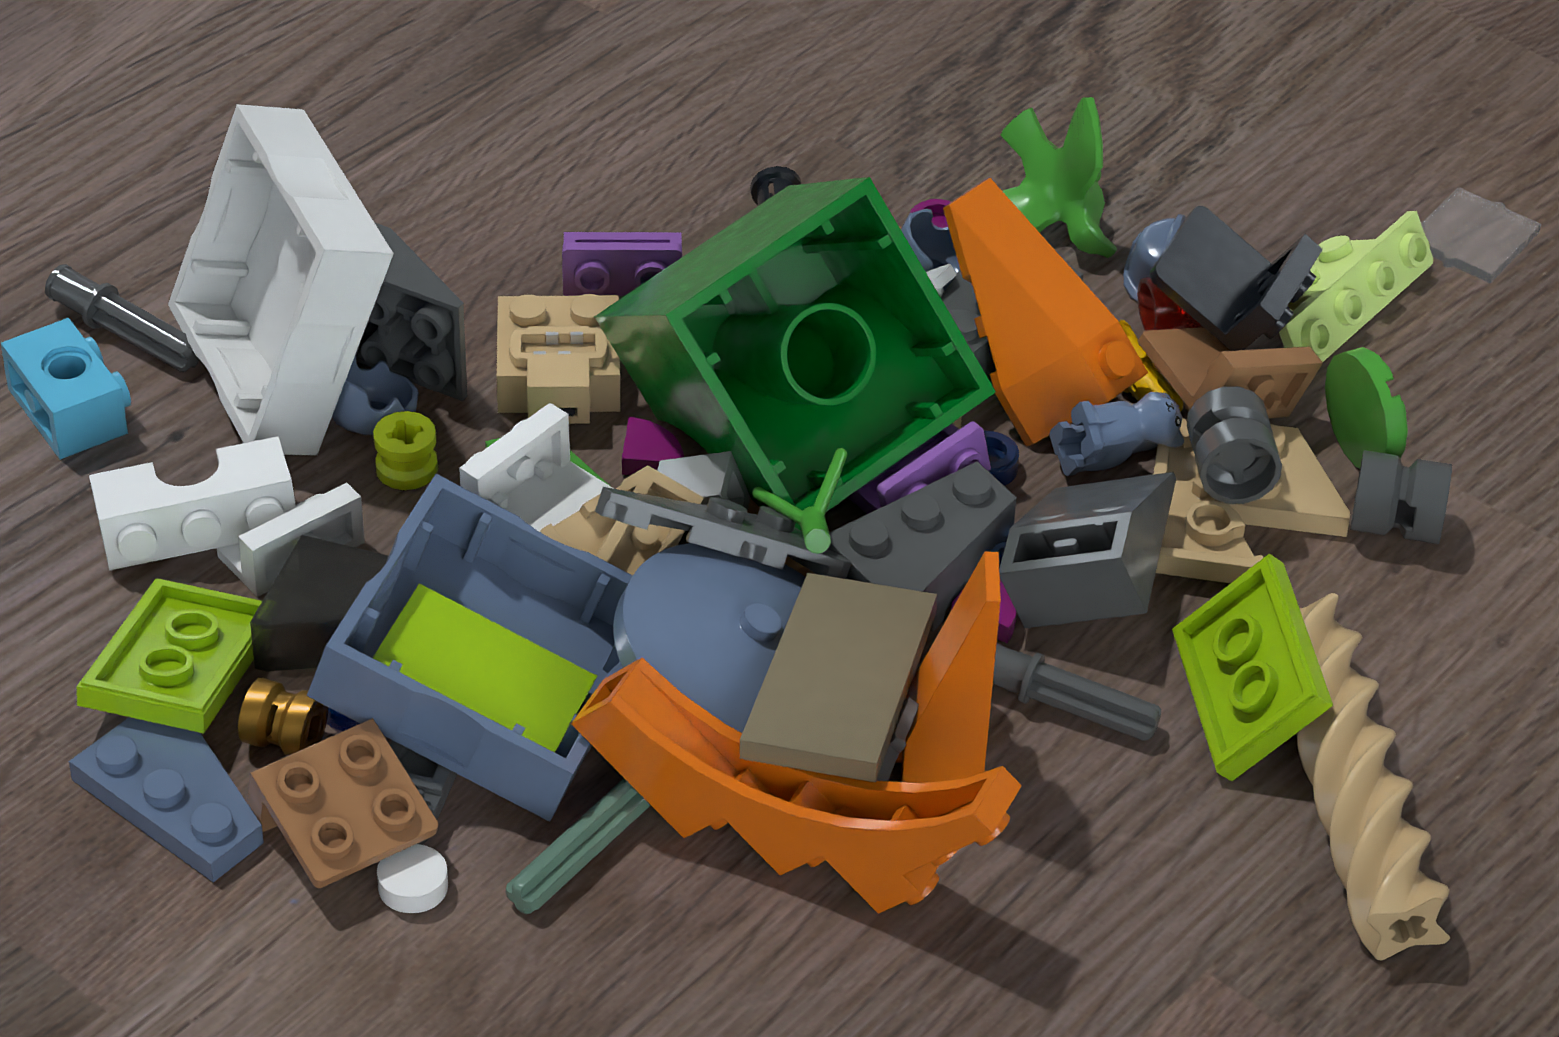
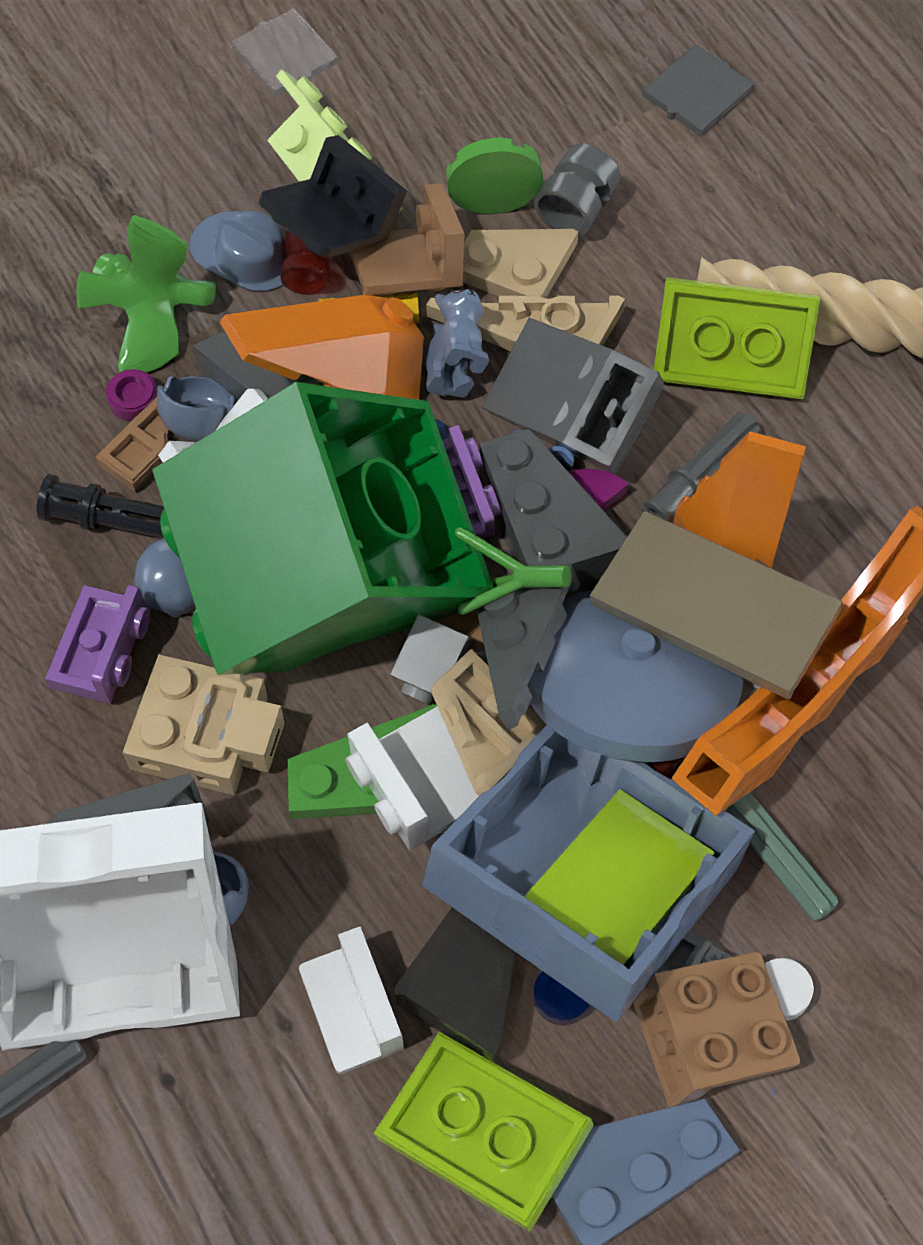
camera: 70 degrees left, 20 degrees up
(66, 387) = (124, 1179): medium azure brick -> none
(157, 521) = (306, 1130): white arch -> none
(280, 717) = (589, 1054): pearl gold wheel -> none
(405, 450) = (282, 892): neon yellow wheel -> none
(647, 445) = (335, 684): magenta tile -> none
(1233, 445) = (533, 271): dark grey wheel -> none

